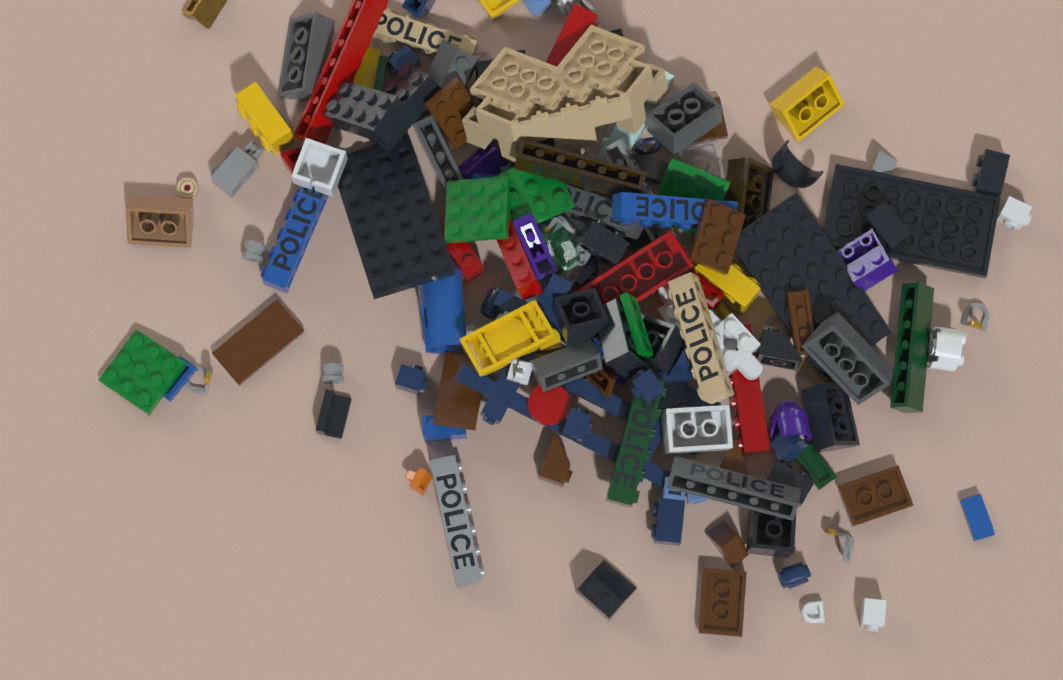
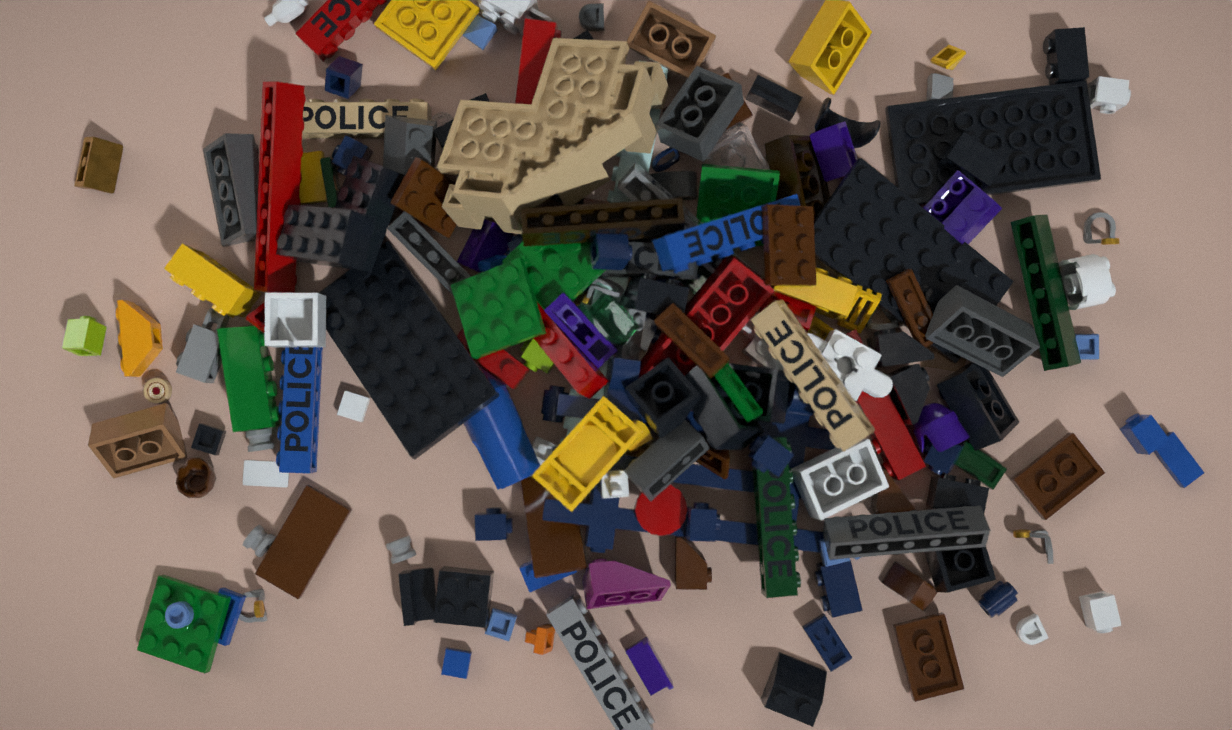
camera: 20 degrees left, 10 degrees up
(144, 361) = (179, 614): none -> medium blue tile
(149, 127) = (84, 336): none -> lime brick
(189, 143) = (138, 337): none -> light orange slope
(194, 263) = (195, 478): none -> reddish brown hair
(214, 238) = (208, 439): none -> black plate
(224, 328) = (259, 541): none -> light grey wheel
(246, 281) = (263, 474): none -> white sticker
(265, 201) = (248, 379): none -> green slope
(335, 252) = (353, 406): none -> white tile
(344, 478) = (456, 663): none -> blue tile
(369, 425) = (463, 596): none -> black brick
(389, 460) = (501, 624): none -> medium blue tile
(494, 261) = (536, 357): none -> lime brick
(496, 533) = (649, 666): none -> dark purple panel
(497, 457) = (618, 584): none -> magenta slope
(578, 194) = (610, 251): none -> dark blue brick
(616, 279) = (691, 340): none -> reddish brown plate
(628, 20) = (592, 17): none -> dark grey tile
(645, 563) = (827, 642): none -> dark blue plate
(681, 57) = (670, 40): none -> medium nougat slope
(749, 128) = (774, 98): none -> black panel
(767, 299) = (865, 295): none -> yellow tile
(774, 383) = (909, 391): none -> black slope
(781, 182) = (834, 150): none -> dark purple panel
(898, 144) = (948, 57): none -> yellow slope
(933, 403) = (1088, 346): none -> medium blue tile
(955, 485) = (1144, 433): none -> blue brick

